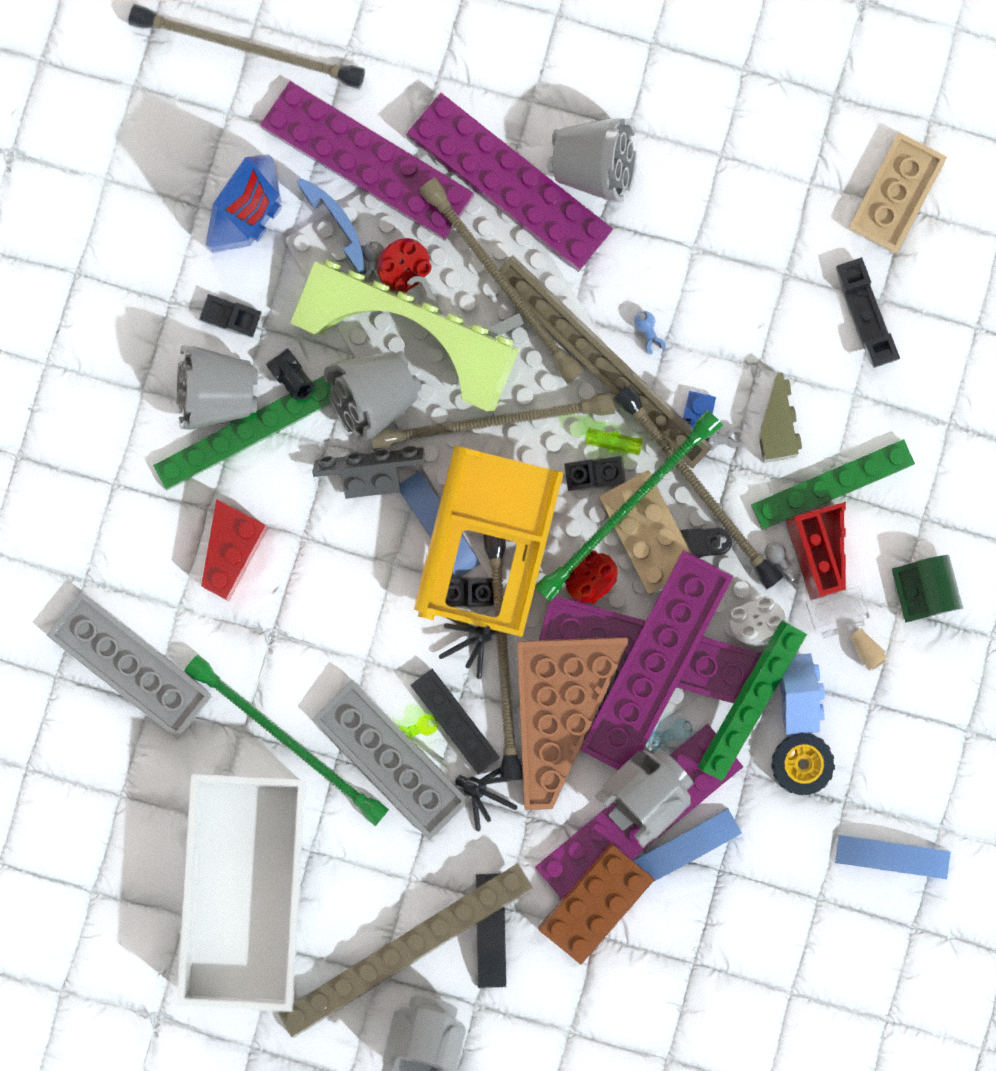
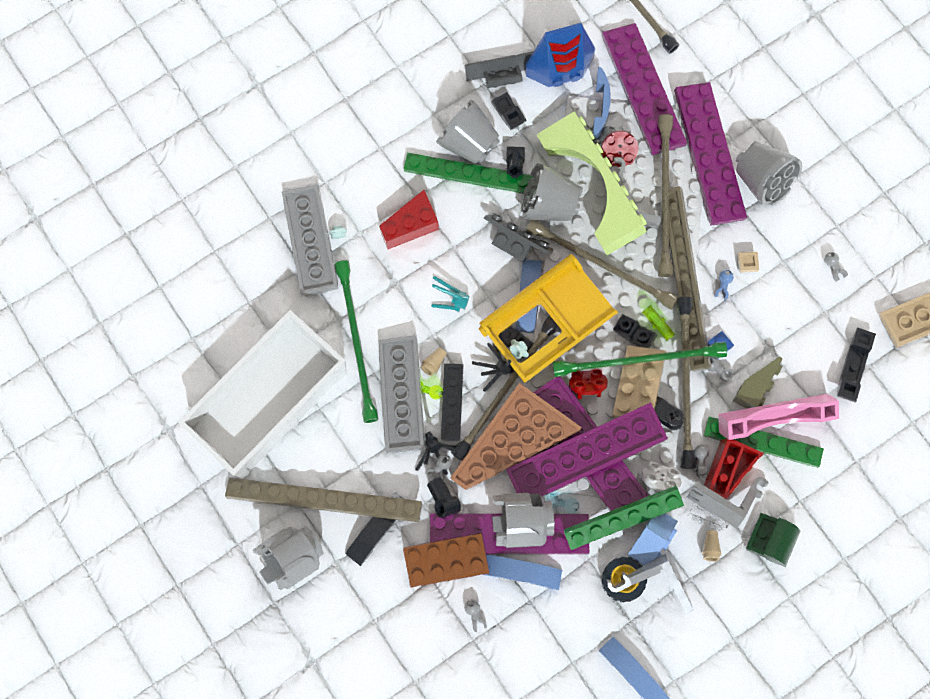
camera: 45 degrees right, 10 degrees down
(155, 629) = (338, 232): none -> light aqua plate
(180, 273) = (499, 70): none -> dark grey bracket
(364, 595) = (460, 298): none -> teal plant
(395, 694) = (433, 362): none -> tan cone
(482, 602) = (518, 349): none -> light aqua plate
(504, 799) = (443, 462): none -> light grey arm
(543, 842) = (444, 502): none -> black piece
(655, 283) = (748, 262): none -> tan plate
(669, 933) = (474, 612): none -> light grey arm
(751, 206) = (833, 261): none -> light grey arm
(798, 483) = (809, 409): none -> bright pink arch
(827, 731) = (650, 570): none -> hinge
(852, 601) = (723, 508): none -> light grey hinge

